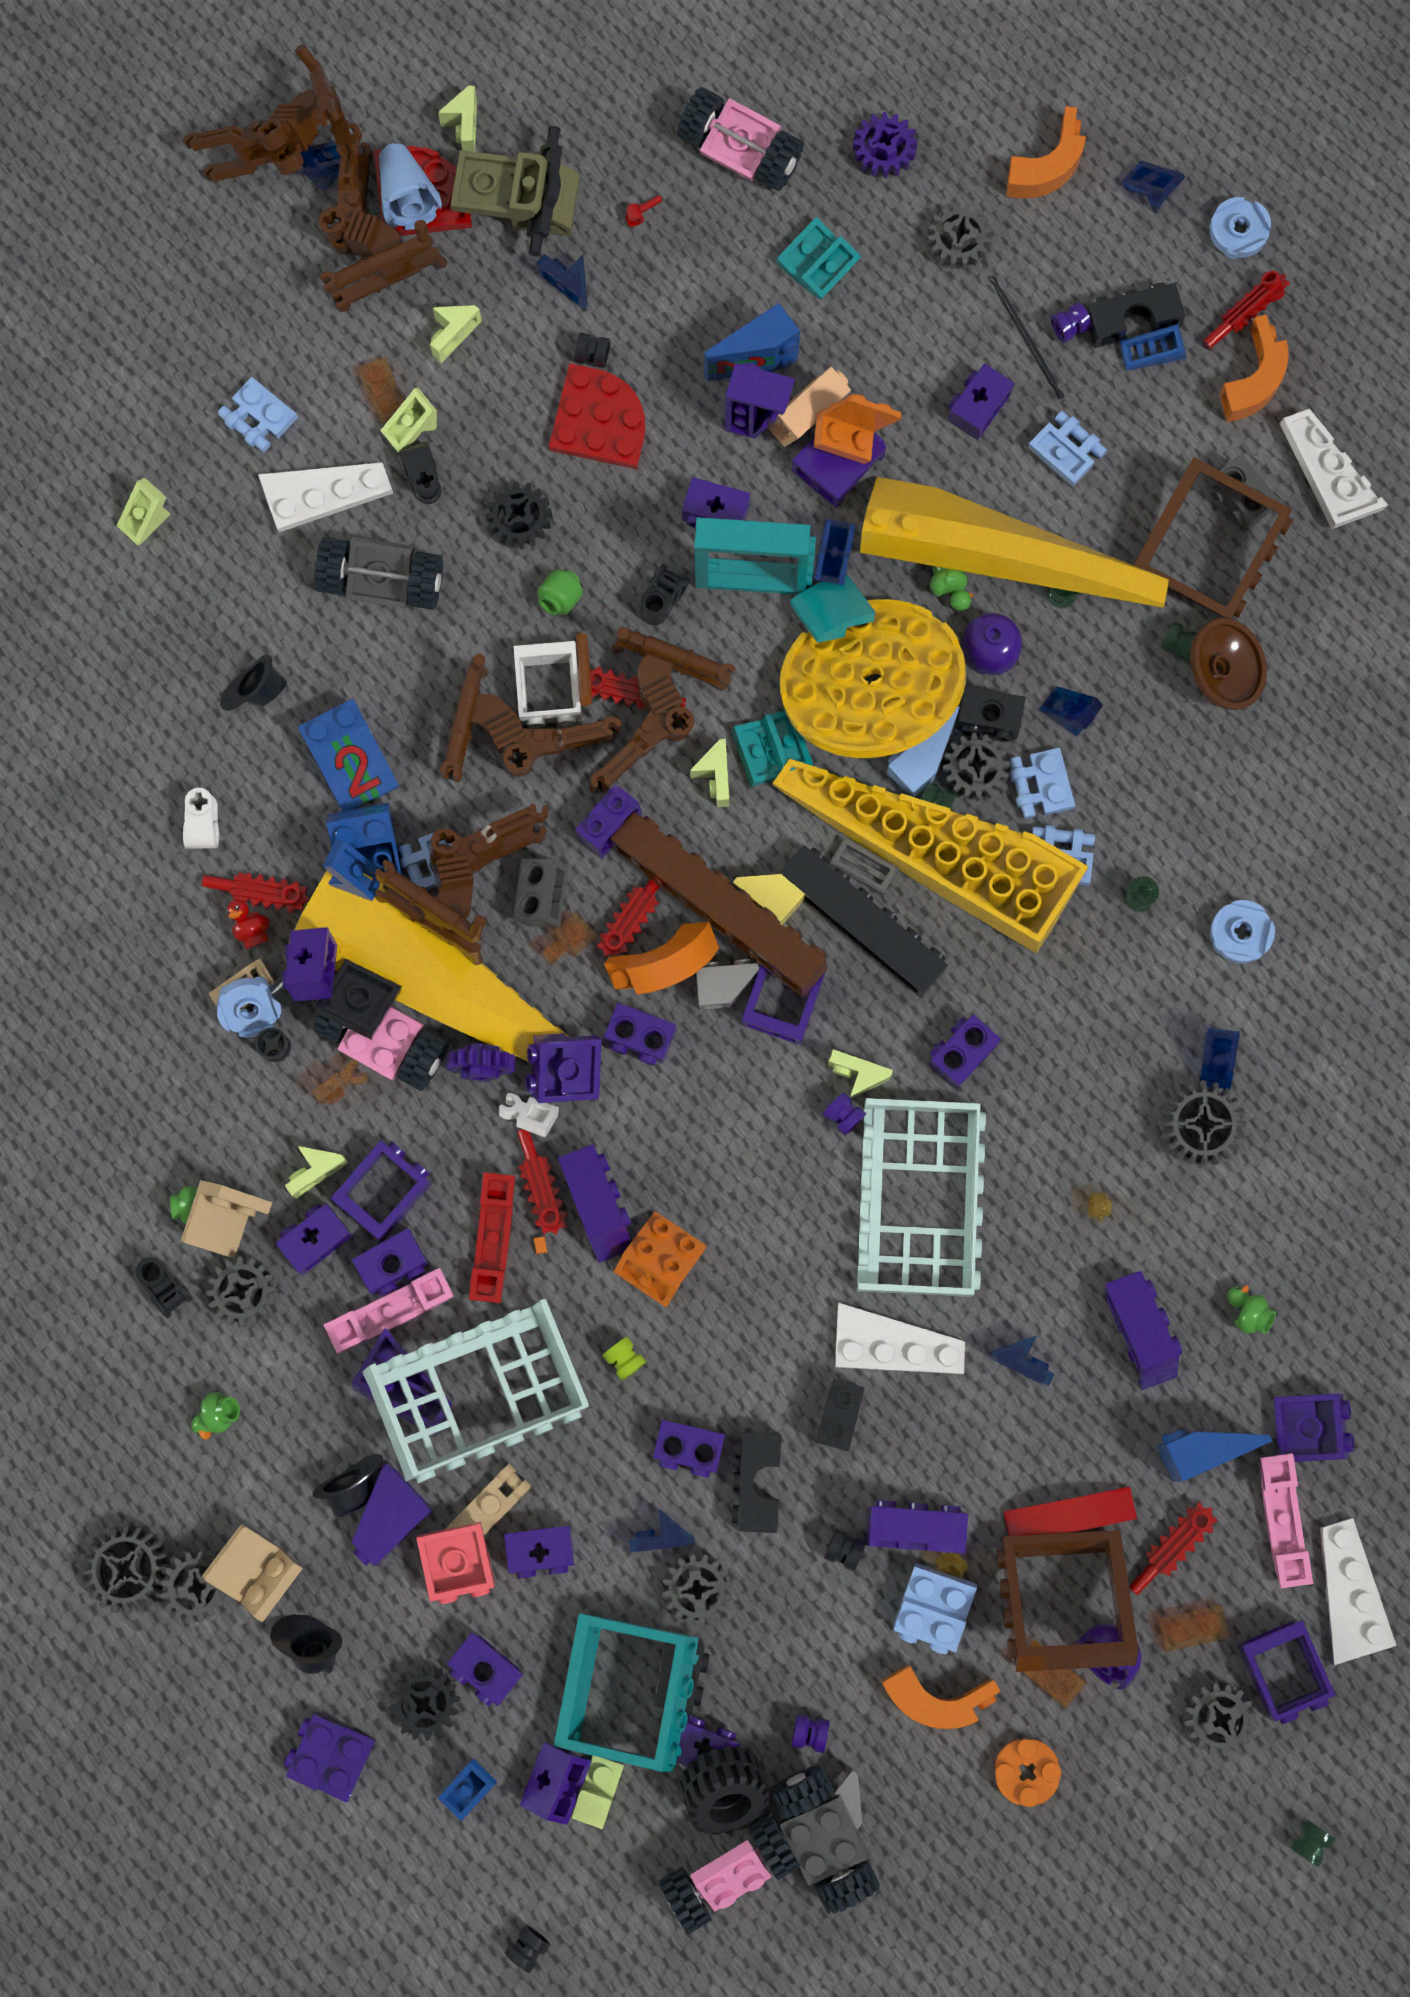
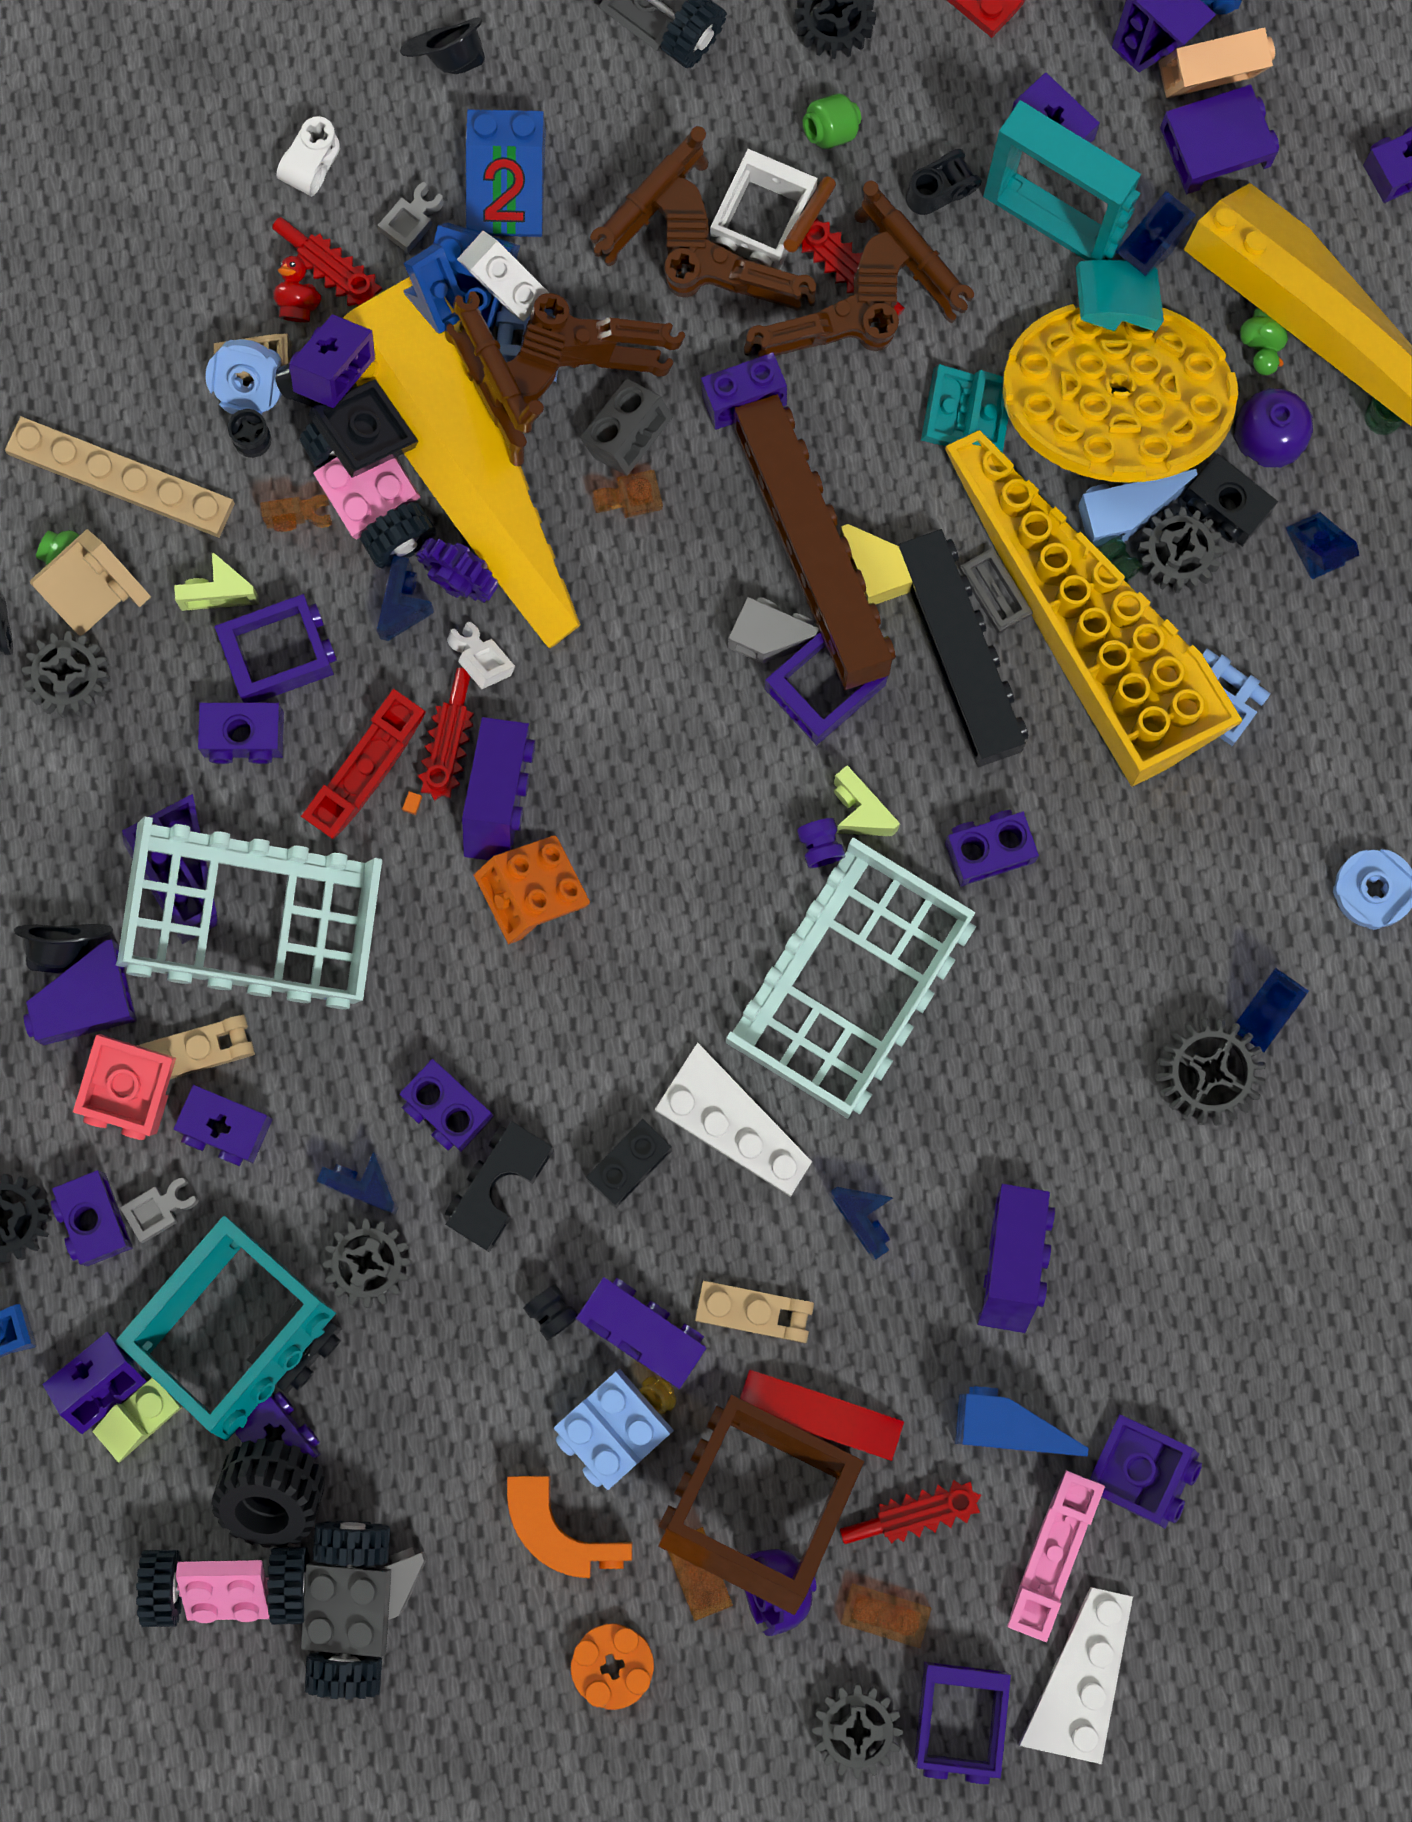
camera: 25 degrees right, 0 degrees up
(196, 1127) = (120, 477): none -> tan plate
(298, 829) = (409, 221): none -> light grey plate
(307, 1255) = (192, 668): dark purple brick -> none
(389, 1311) = (209, 783): bright pink slope -> none
(395, 835) = (502, 275): none -> white brick
(452, 1113) = (397, 610): none -> clear blue slope
(525, 1639) = (153, 1212): none -> light grey plate
(564, 1068) = (544, 626): dark purple plate -> none
(624, 1358) = (431, 975): lime wheel -> none
(627, 923) = (703, 510): red piece -> none
(644, 1026) = (656, 631): dark purple brick -> none
(666, 965) = (719, 575): orange arch -> none
(715, 765) = (893, 394): yellowish green slope -> none
(818, 1733) = (407, 1493): dark purple wheel -> none
(849, 427) = (1249, 102): orange bracket -> none
(982, 1469) = (752, 1311): none -> tan plate
(1051, 783) = (1254, 612): light blue plate -> none
(1099, 1206) = (1044, 1098): clear yellow plate -> none
(1137, 898) = (1280, 792): clear green wheel -> none
(1254, 1313) = (1151, 1309): bright green animal -> none

